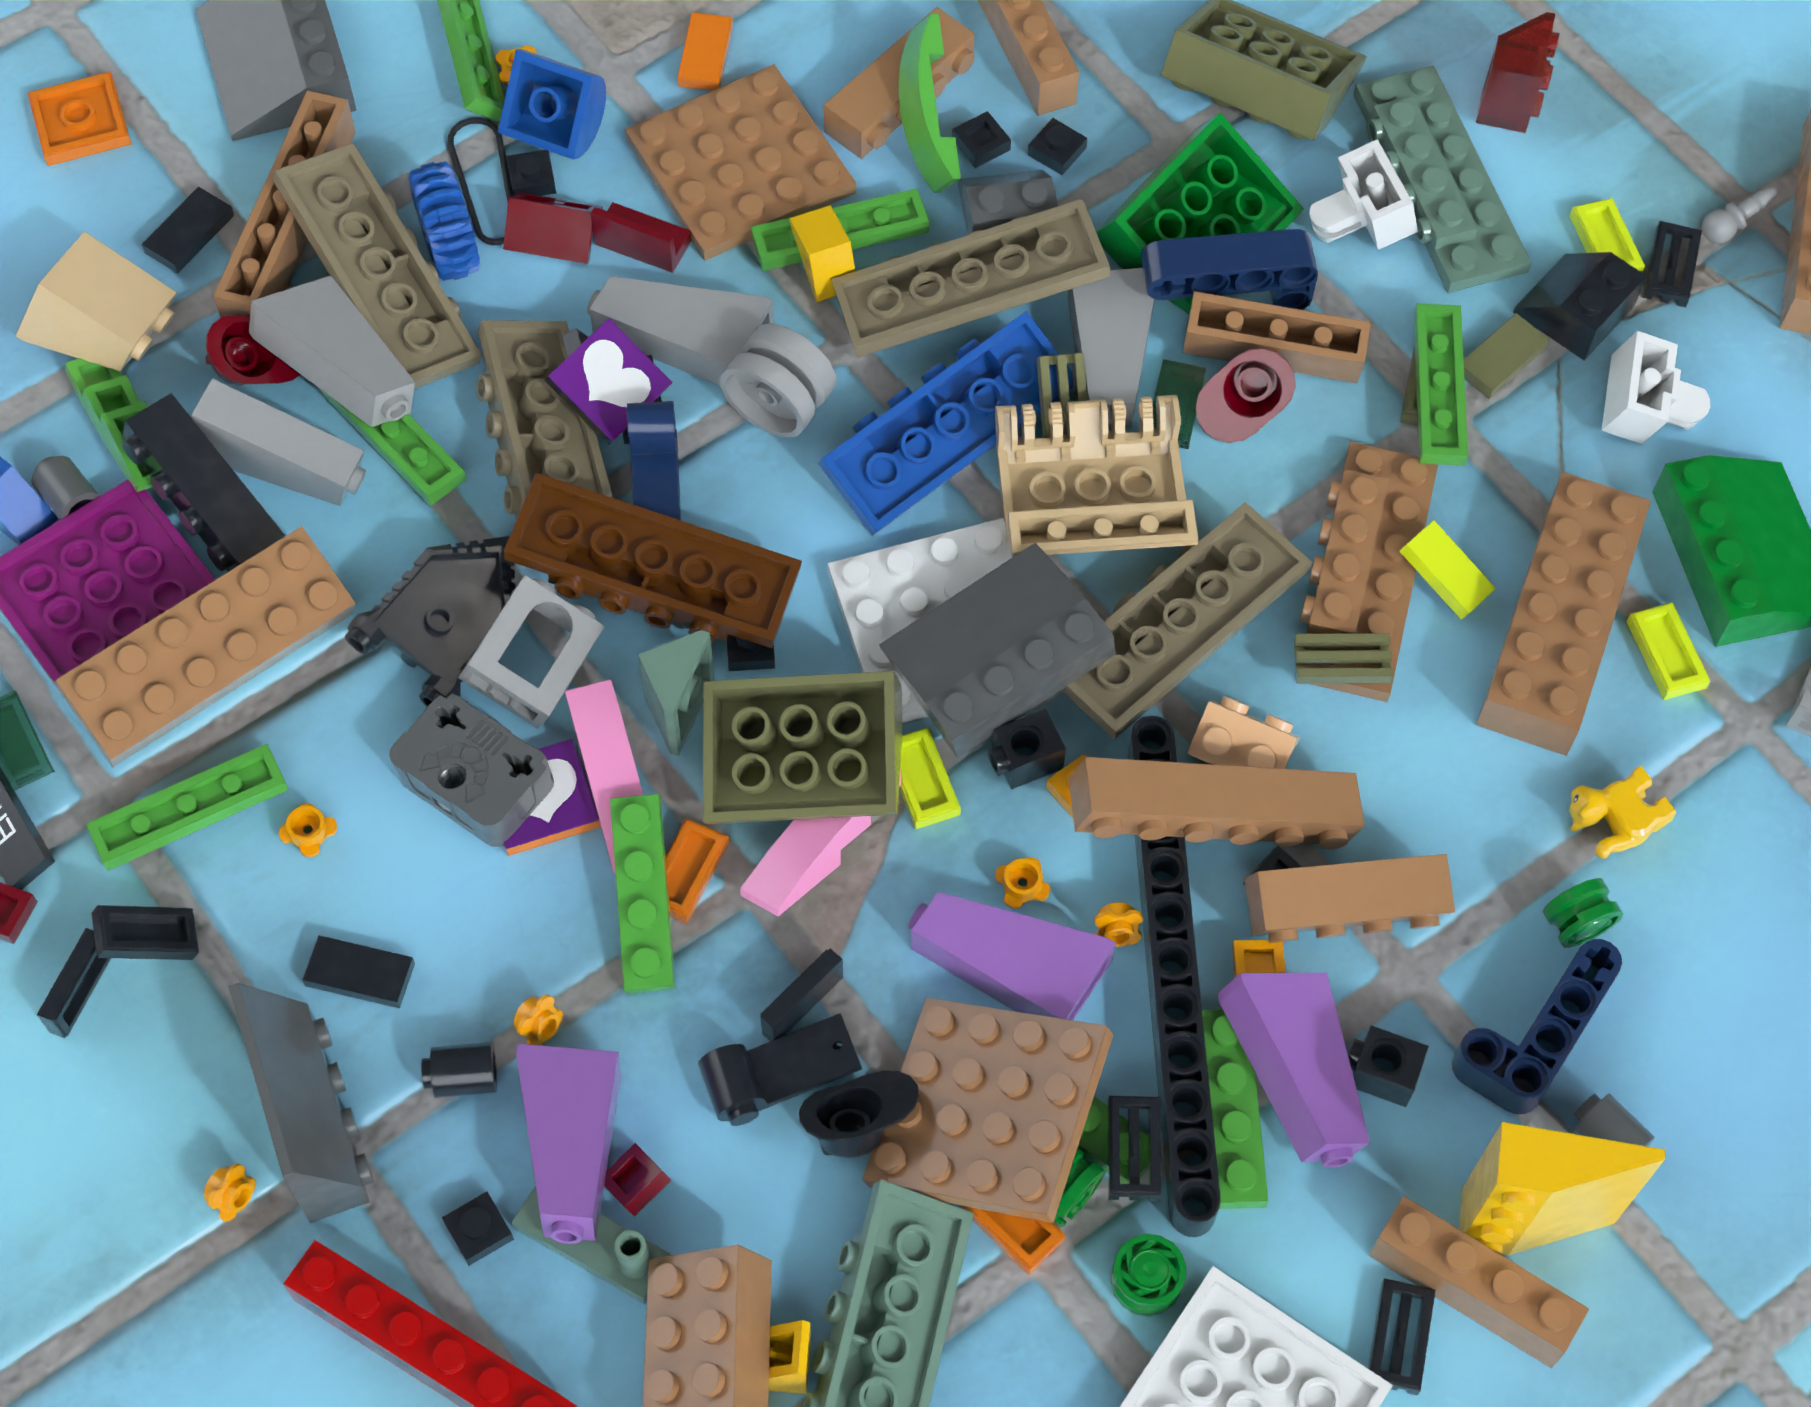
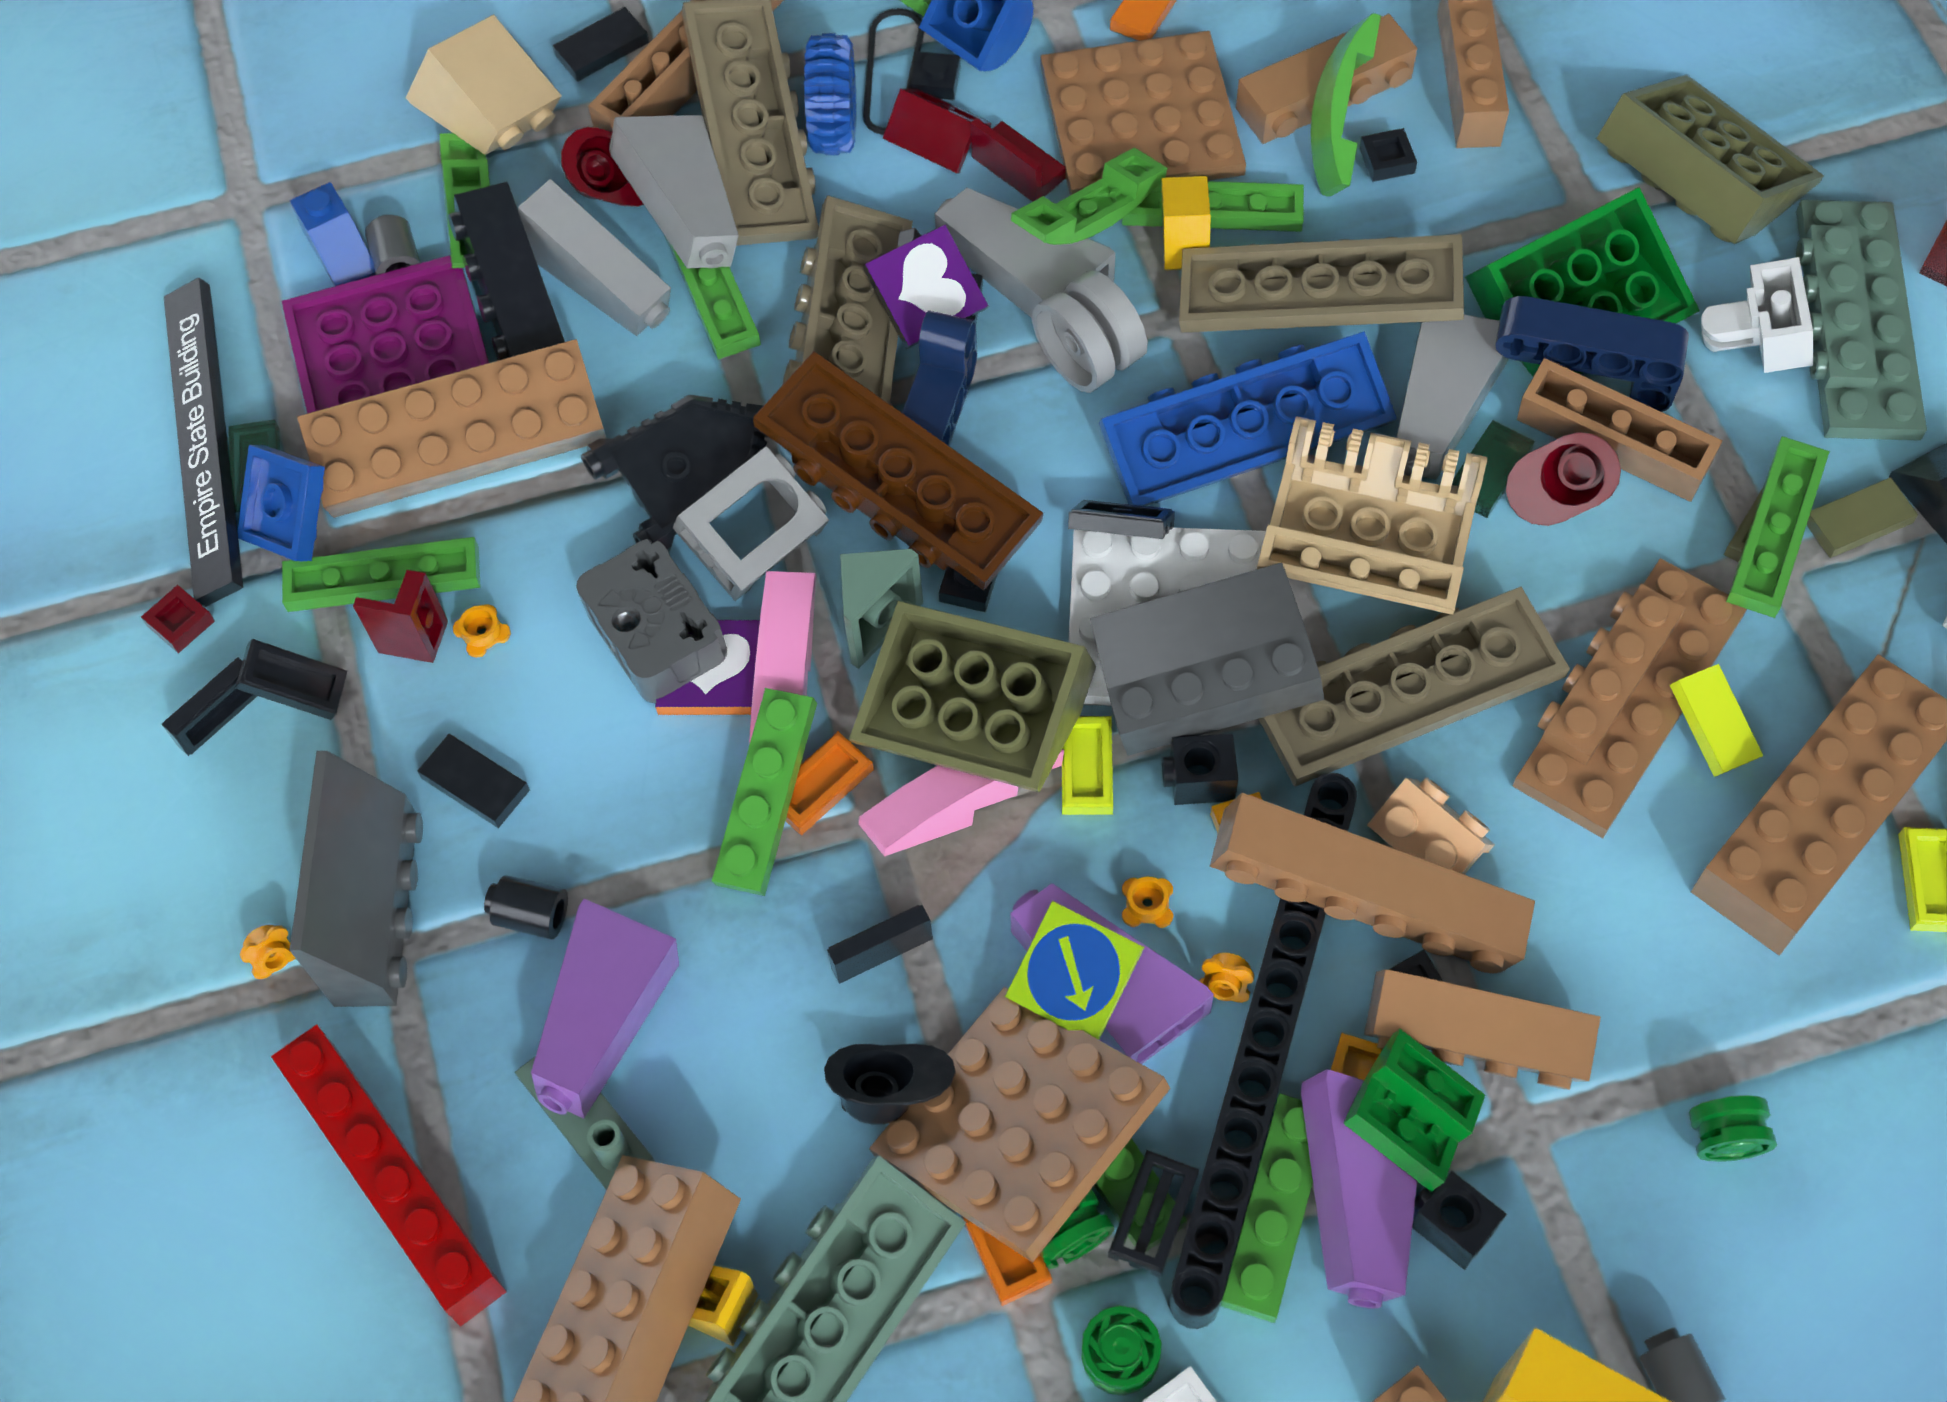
camera: 25 degrees right, 0 degrees up
(65, 767) = (280, 502): none -> blue plate
(236, 851) = (409, 626): none -> dark red panel
(477, 1228) = (482, 1066): black plate -> none
(537, 1019) = (617, 882): light orange plate -> none
(635, 1179) = (647, 1071): dark red plate -> none
(738, 260) = (1096, 207): none -> bright green slope
(756, 1079) = (803, 1011): black door -> none
(871, 545) = (1121, 519): none -> tile
(989, 962) = (1074, 971): none -> piece
(1003, 197) = (1389, 215): dark grey slope -> none
(1044, 383) = (1380, 391): olive tile -> none
(1057, 146) = (1464, 182): black plate -> none
(1323, 983) = (1415, 1109): none -> green slope
(1370, 641) = (1570, 760): olive tile -> none
(1552, 1023) = (1653, 1234): dark blue beam -> none
(1624, 811) = (1820, 1032): yellow animal -> none

